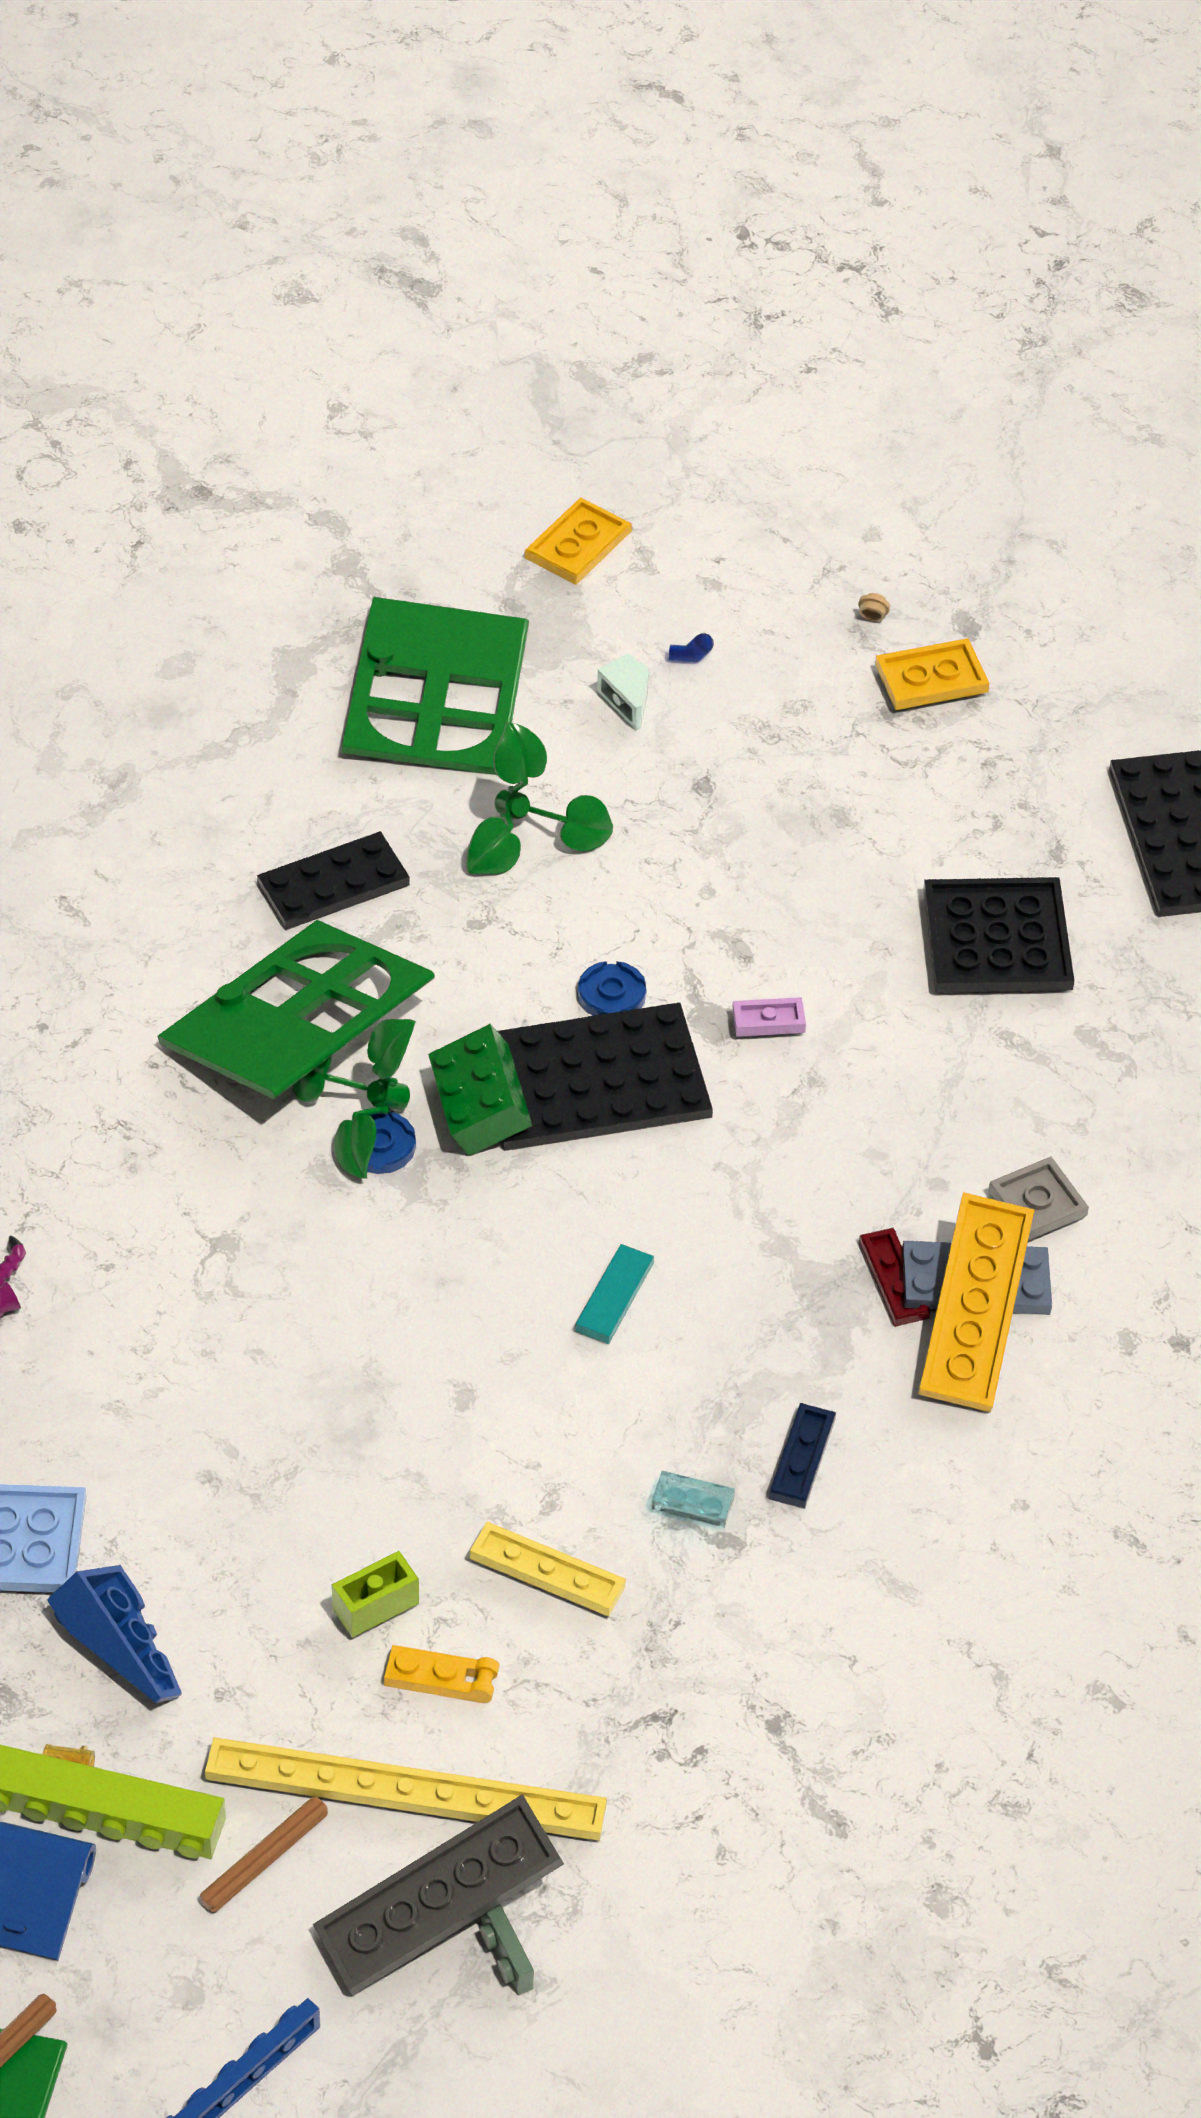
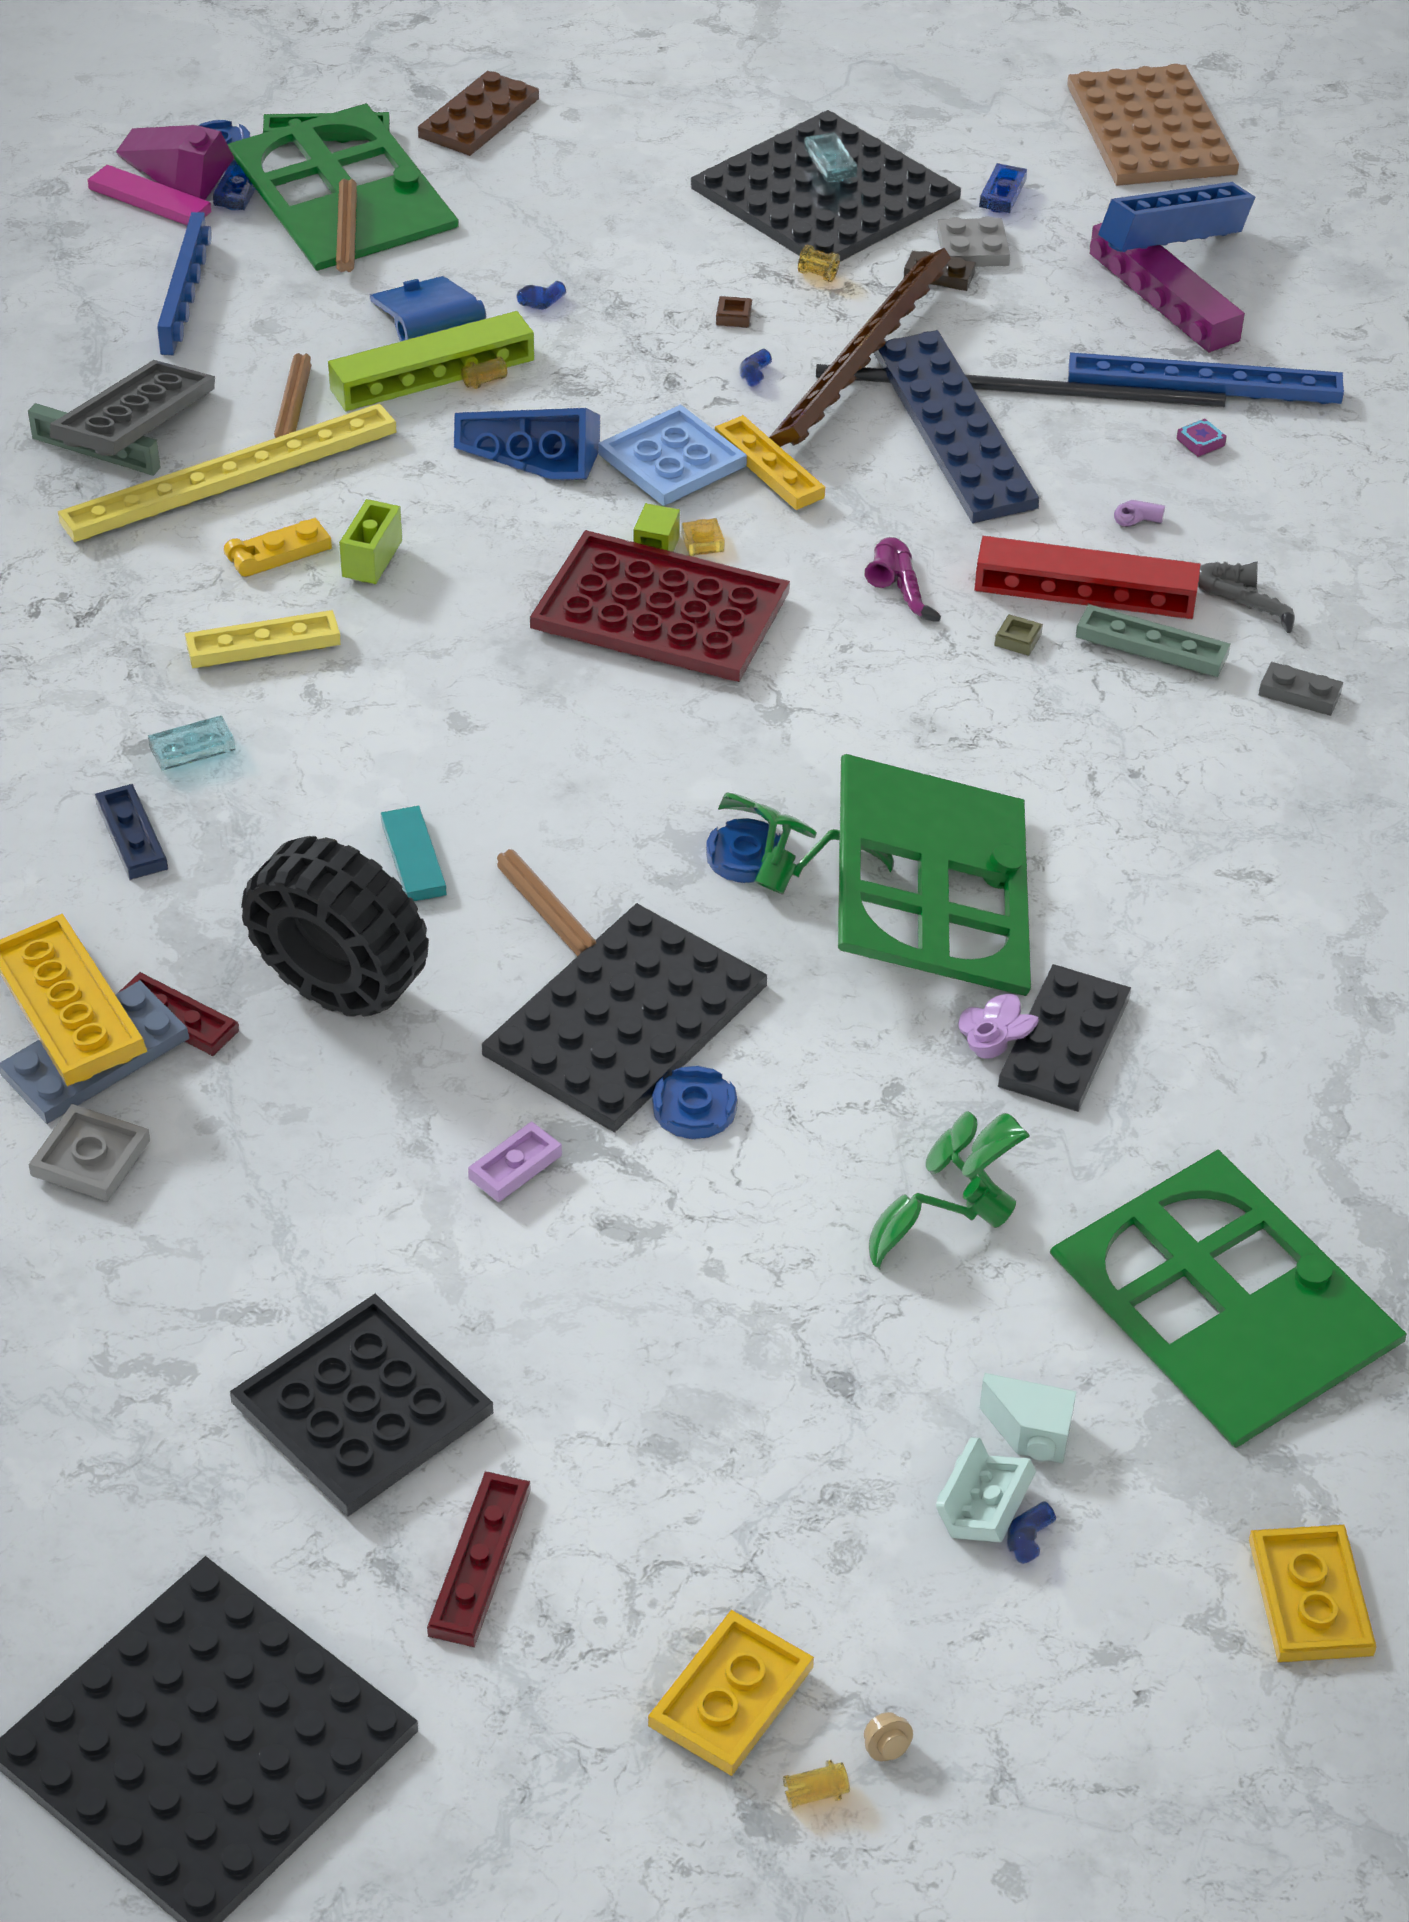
camera: 140 degrees right, 5 degrees down
(92, 1440) = (702, 536): none -> clear yellow plate
(132, 1455) = (658, 527): none -> lime brick
(207, 1387) = (660, 605): none -> dark red plate
(367, 907) = (995, 1025): none -> lavender plate
(479, 1089) = (696, 904): green brick -> none
(562, 1189) = (545, 902): none -> medium nougat axle
(696, 670) = (983, 1493): none -> light aqua bracket
(767, 1178) = (335, 926): none -> black tyre
(930, 613) = (817, 1784): none -> clear yellow pin
(1001, 821) = (479, 1559): none -> dark red tile

